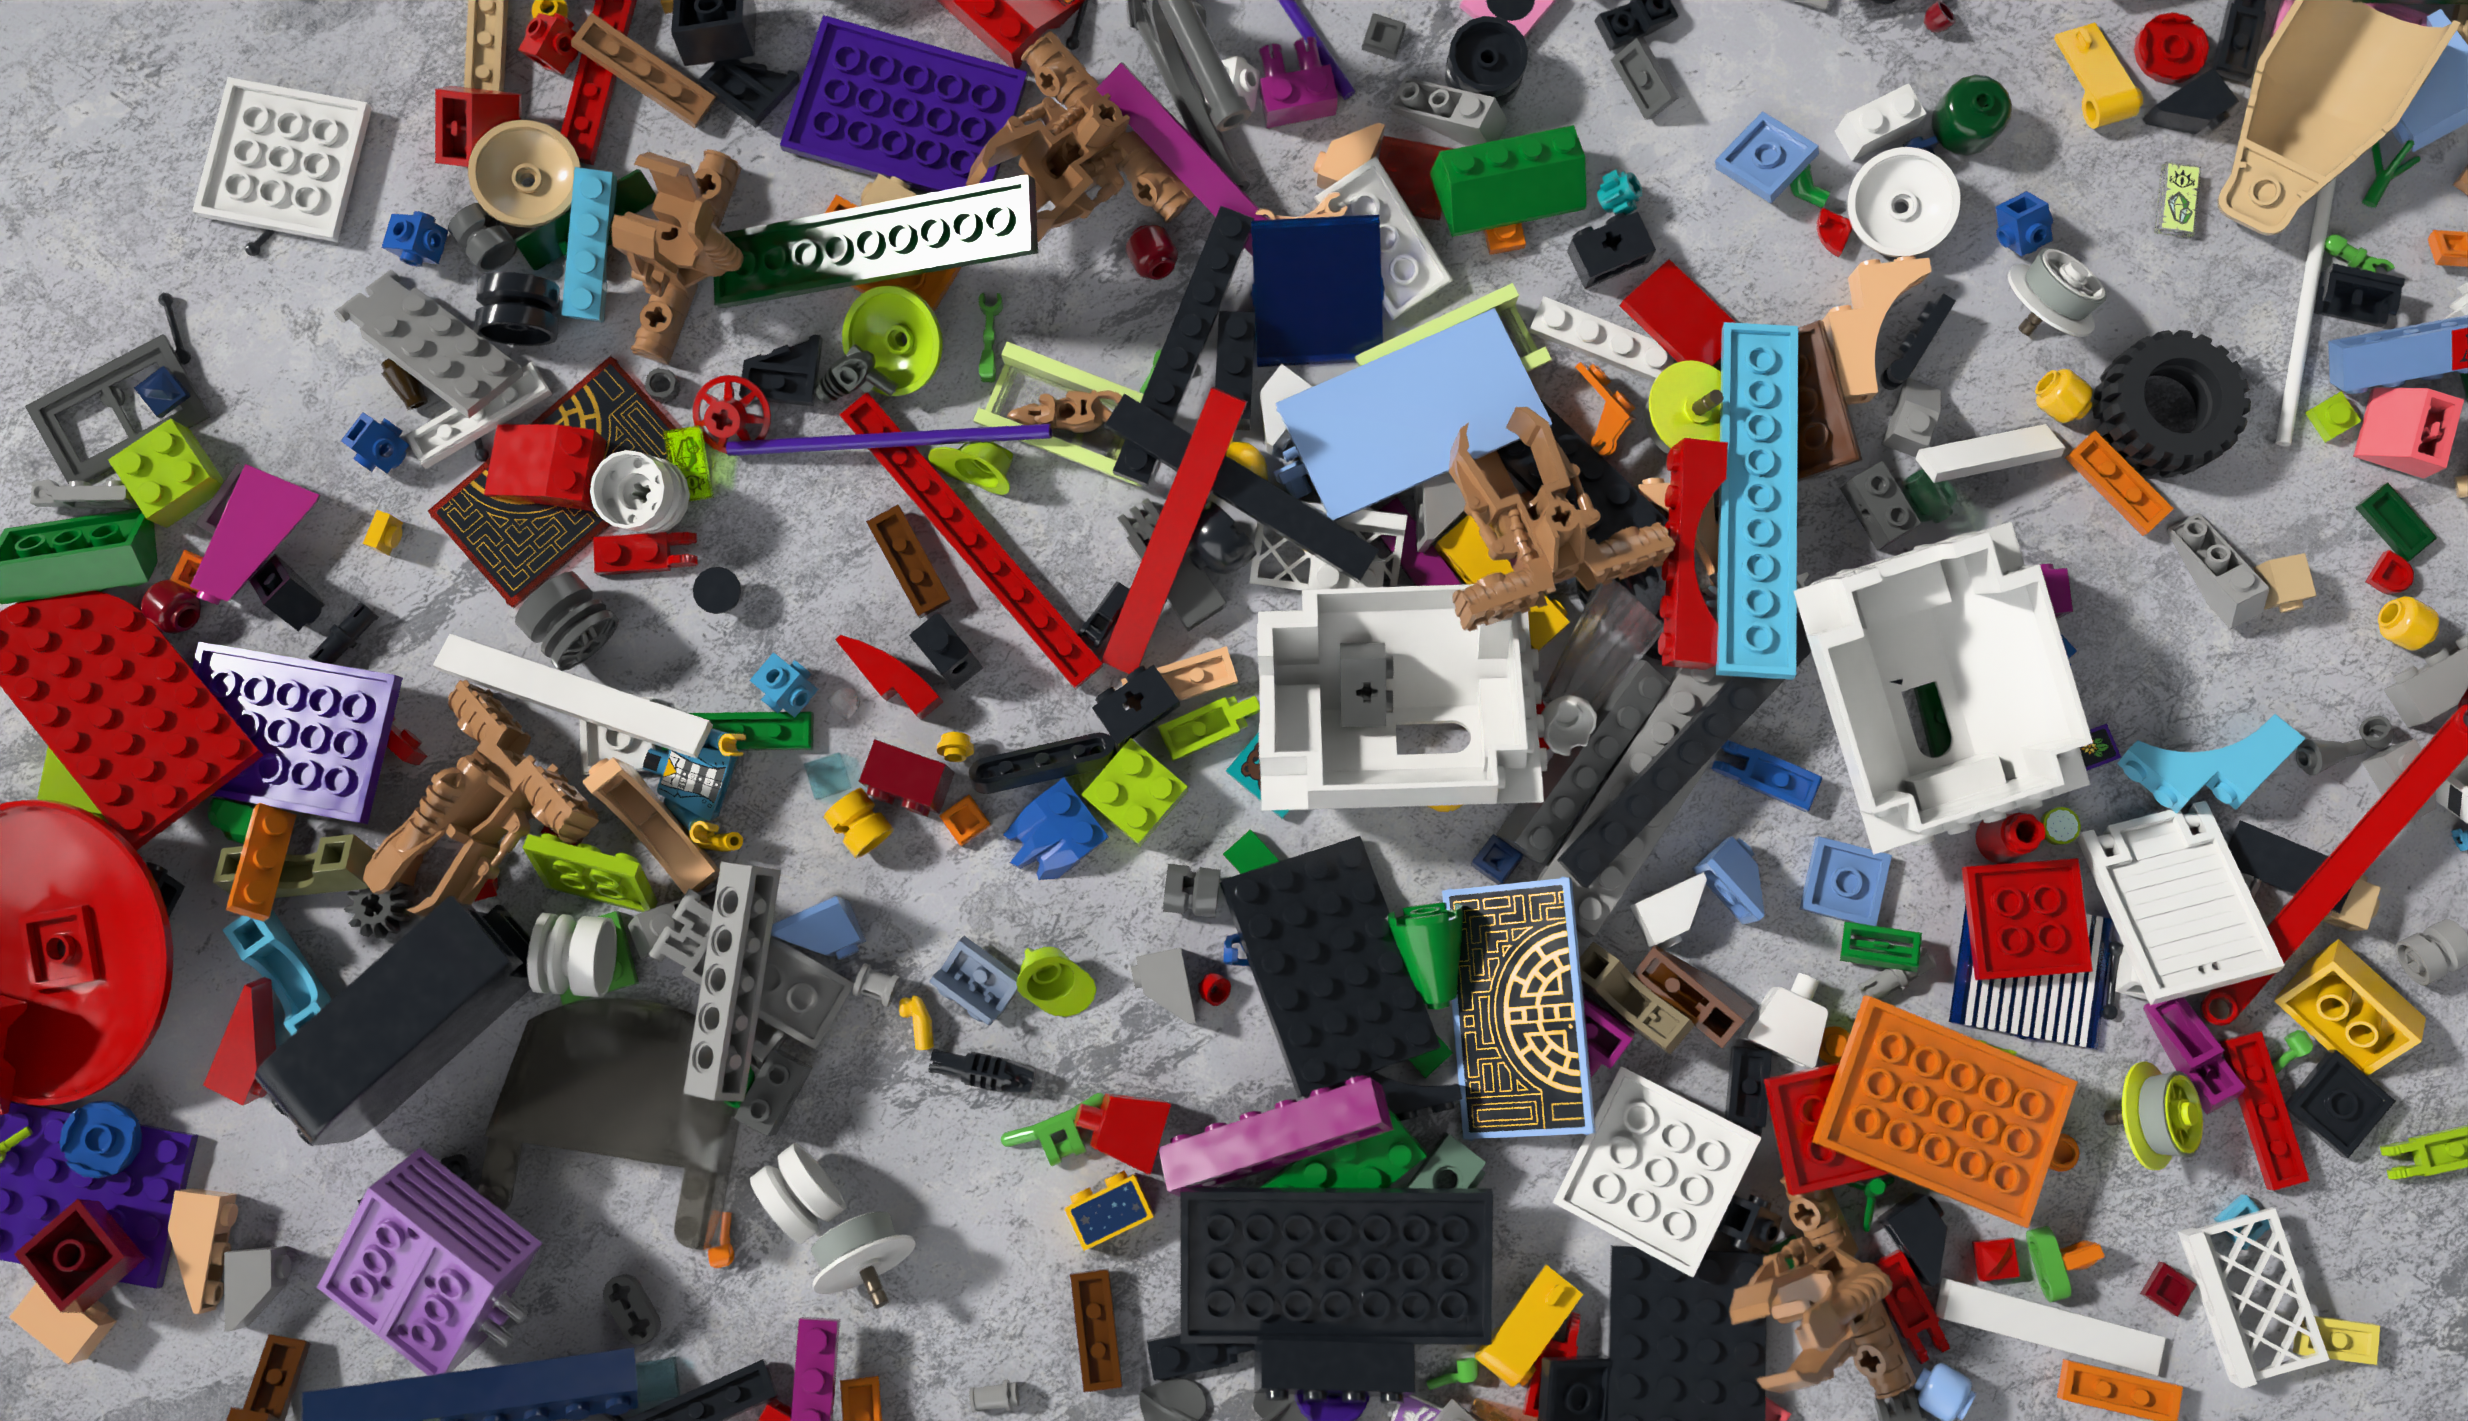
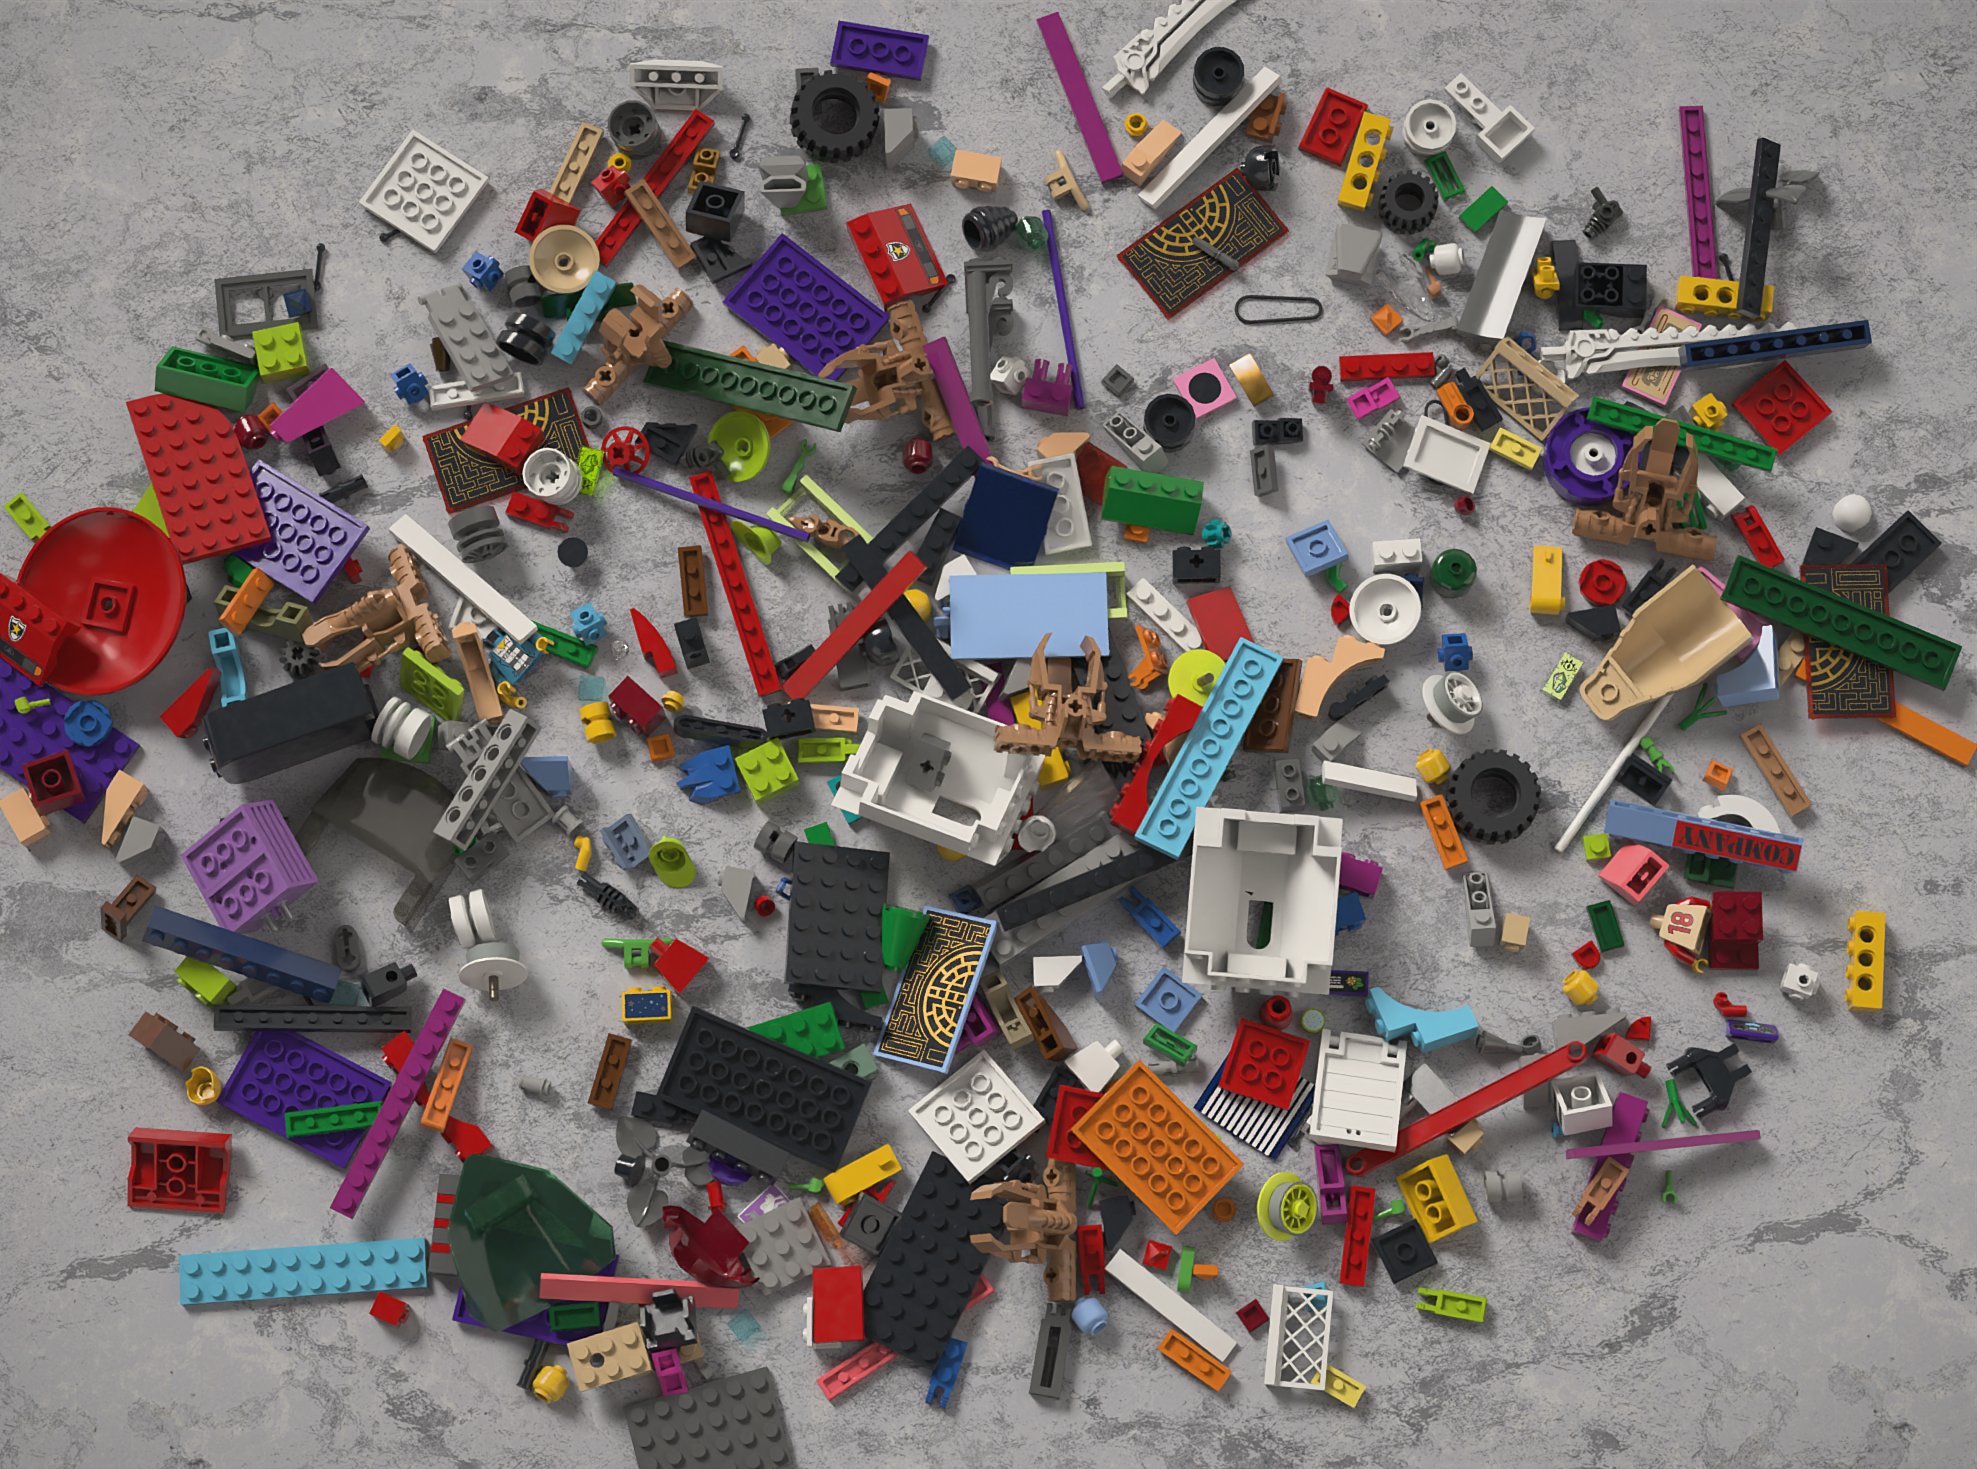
camera: 25 degrees right, 5 degrees down
(698, 1354) = (378, 988): none -> black torso
(724, 1254) = (413, 939): orange hand -> none
(1276, 1136) = (763, 999): magenta brick -> none

